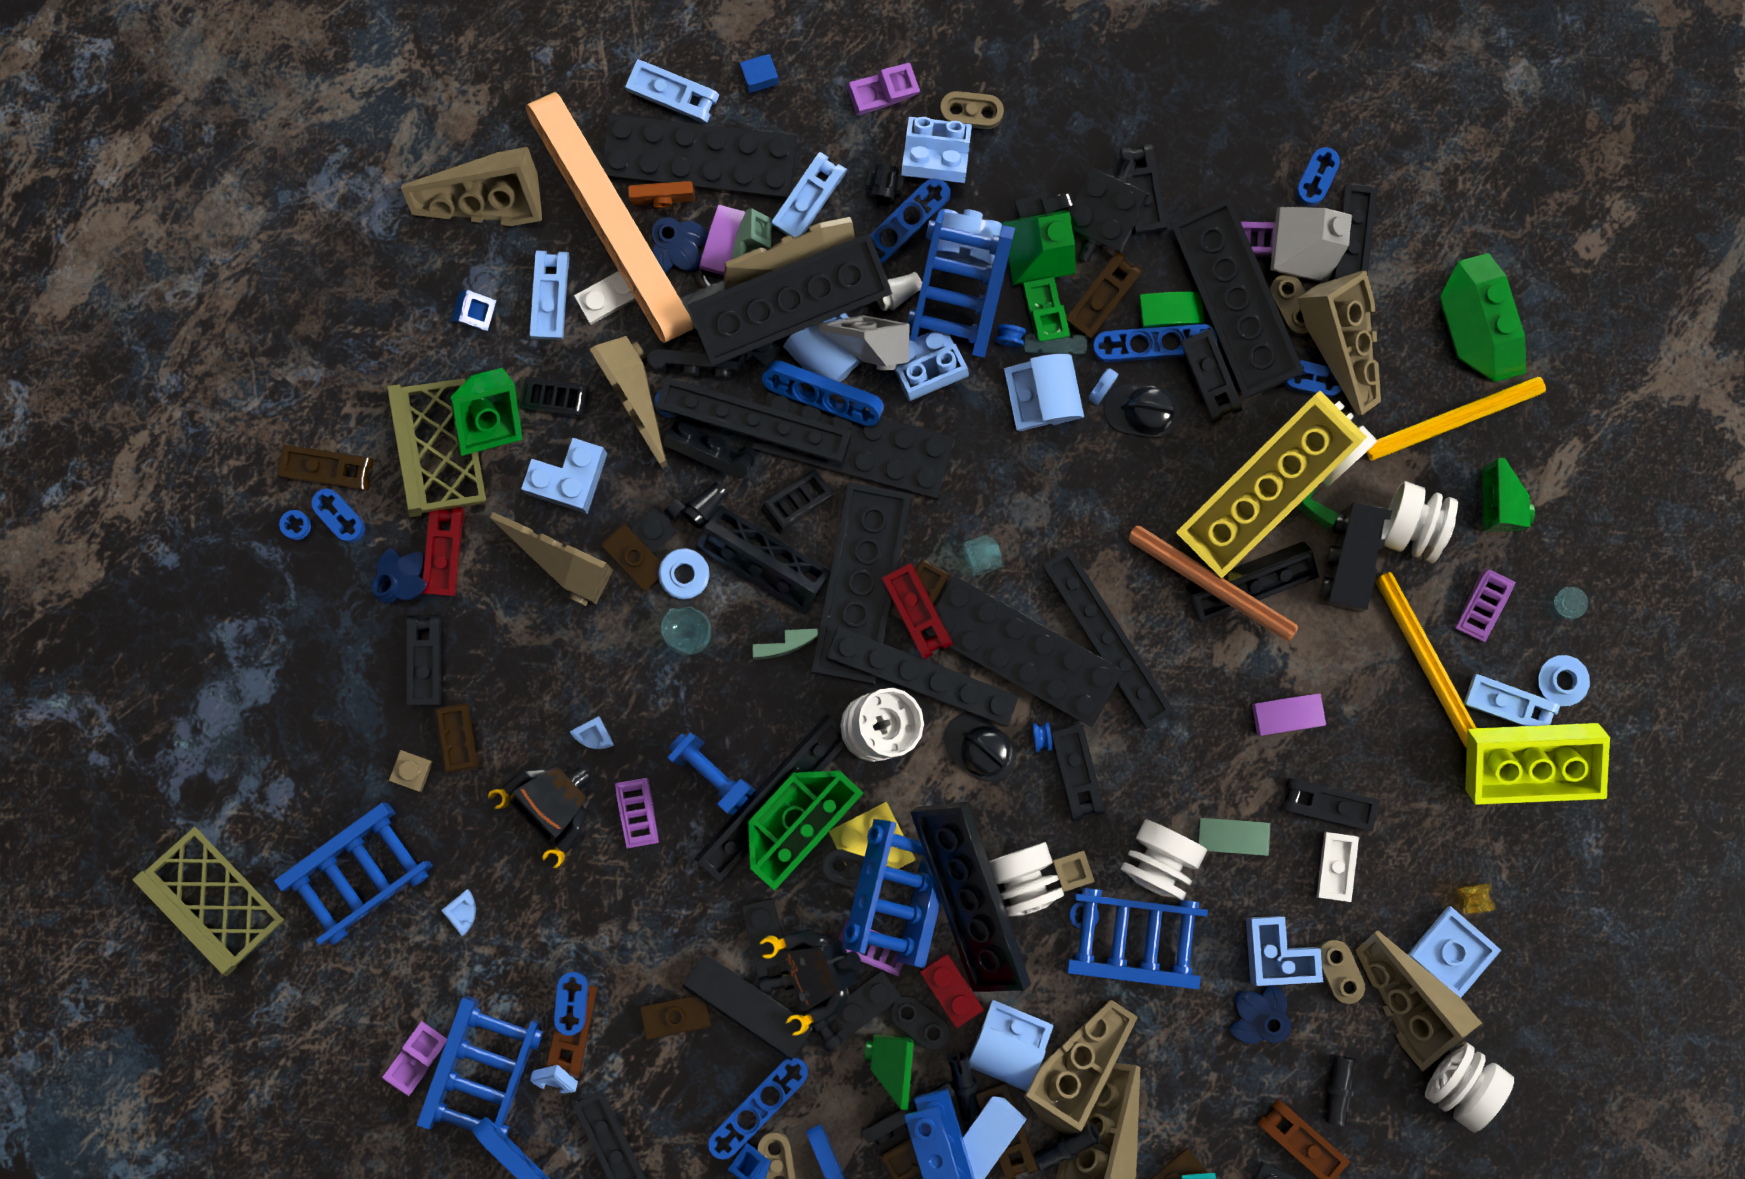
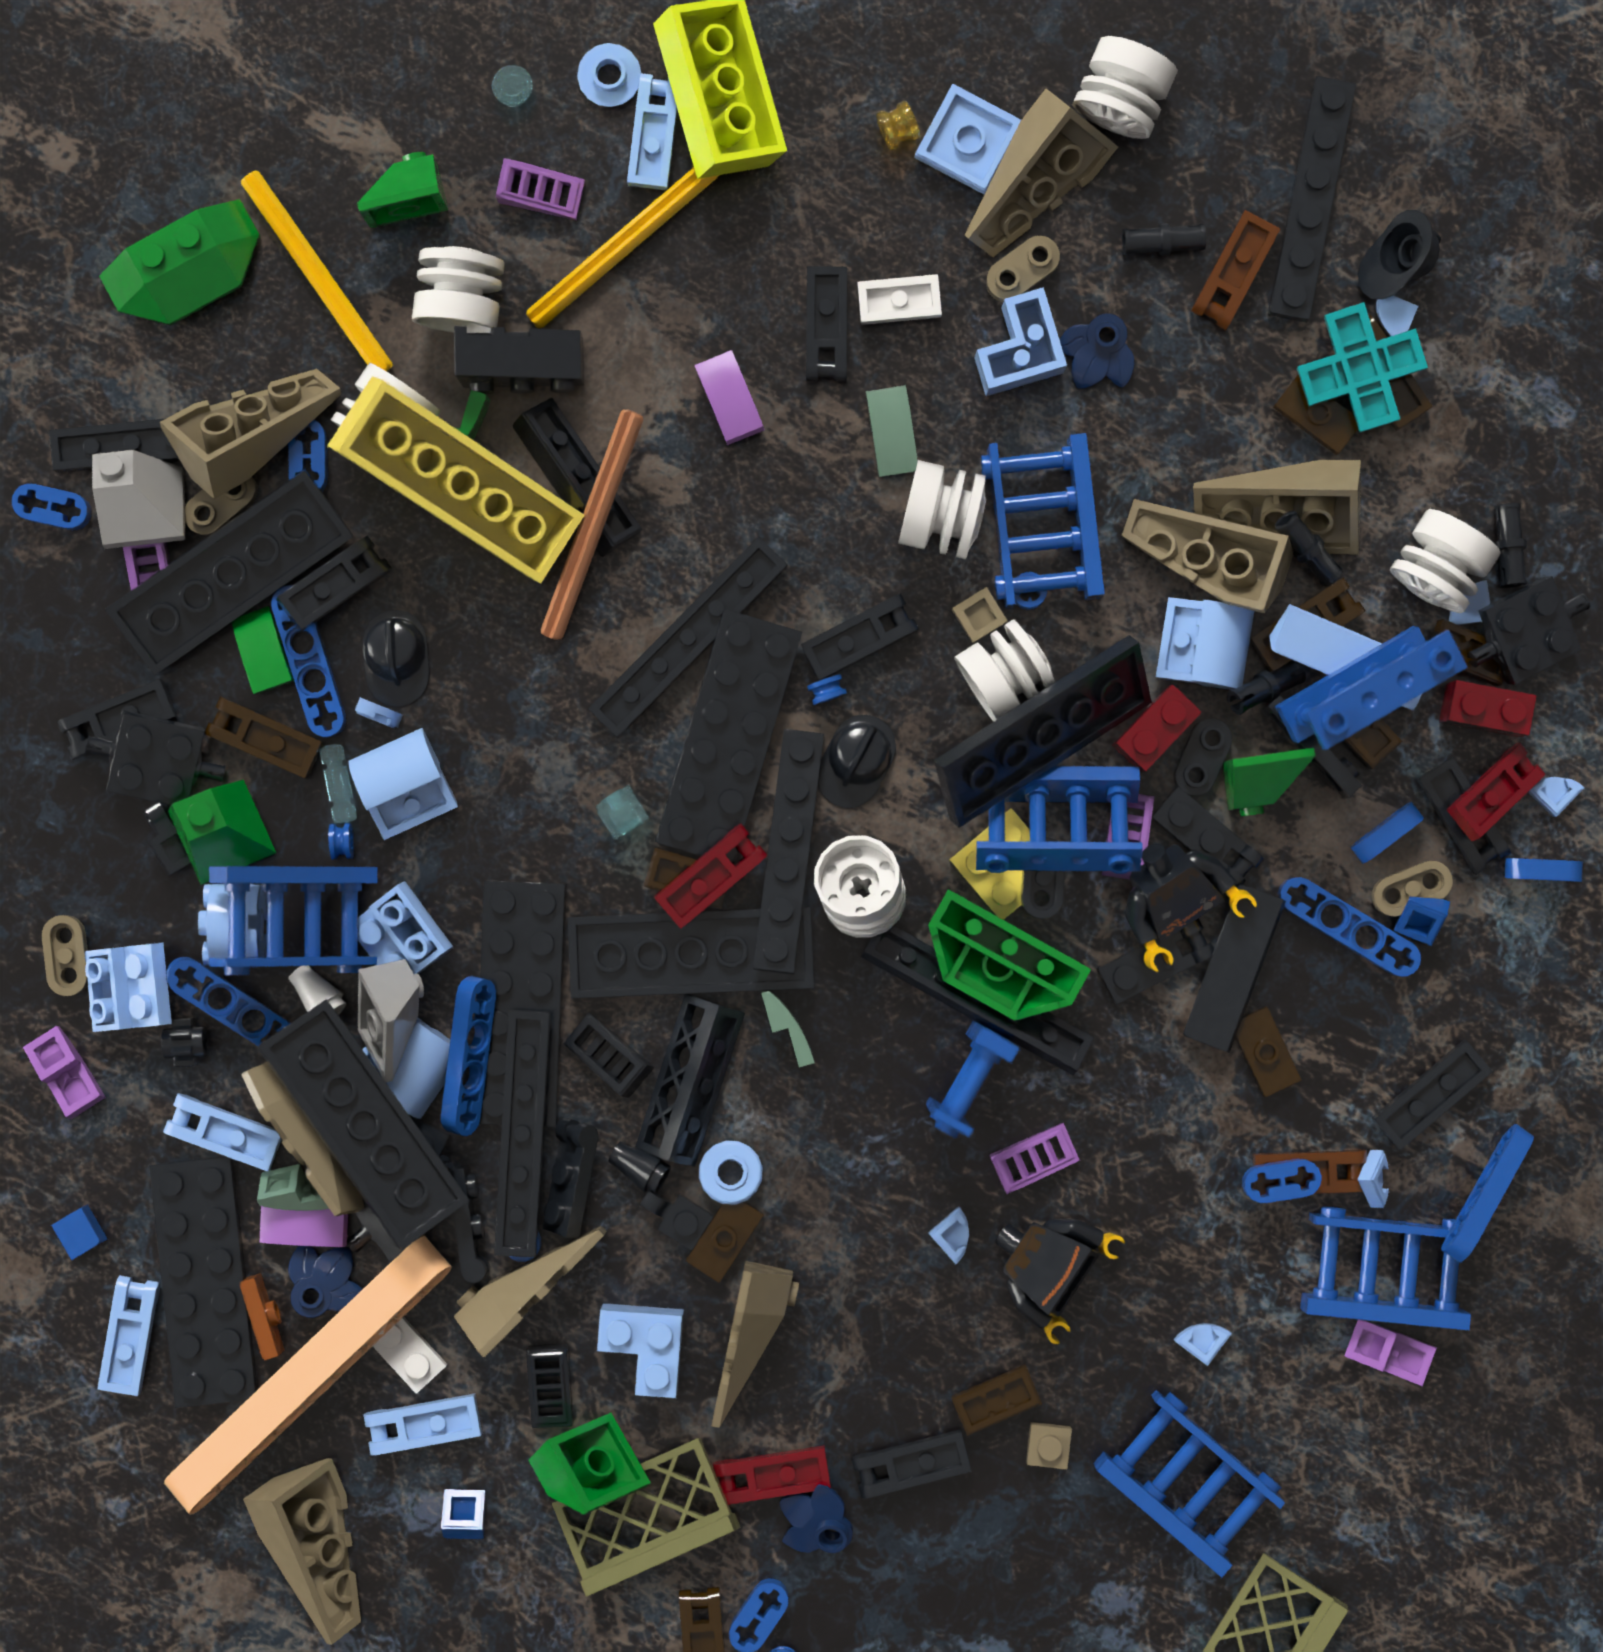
camera: 100 degrees left, 5 degrees up
(686, 630) = (800, 1152): clear light blue hair -> none
(1044, 310) = (299, 805): green slope -> none

